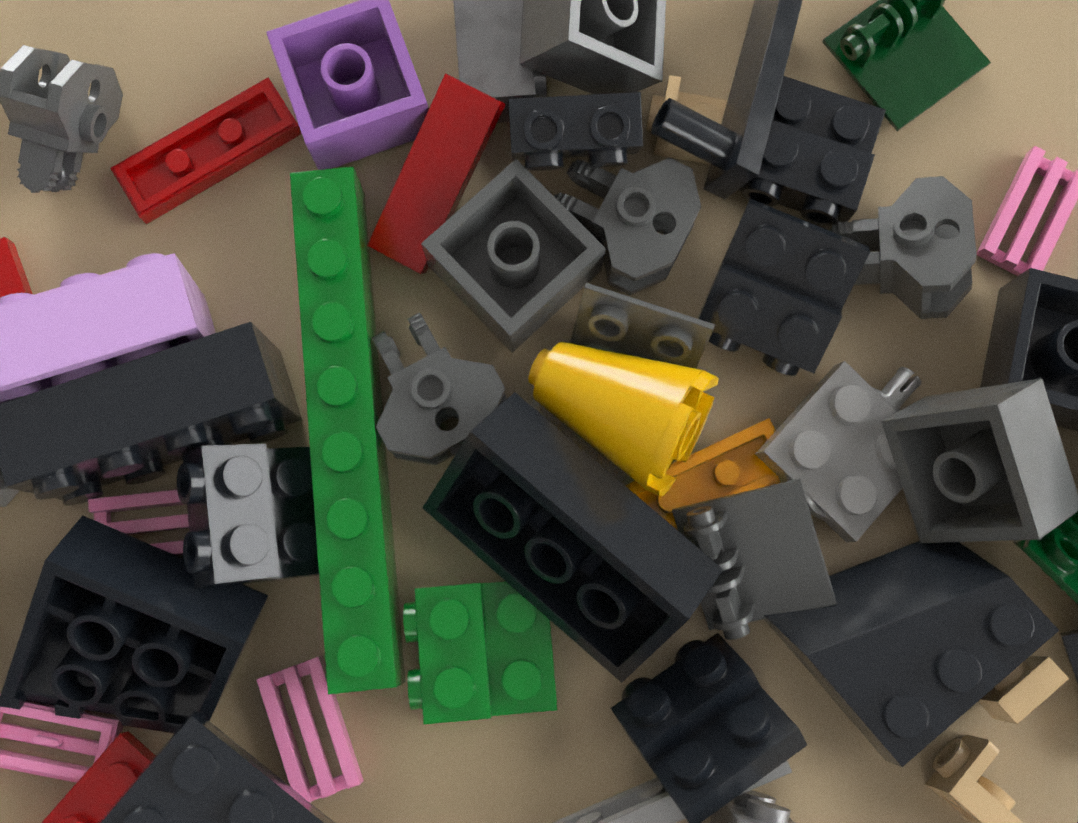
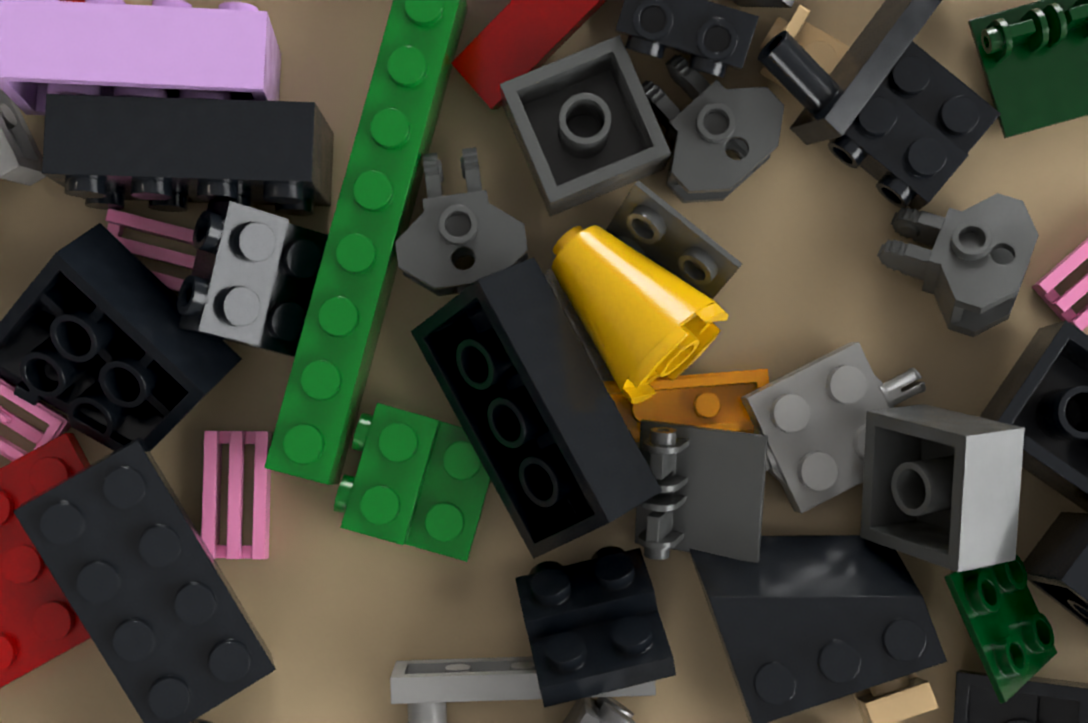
camera: 20 degrees right, 5 degrees up
(782, 288) = (825, 251): black plate -> none

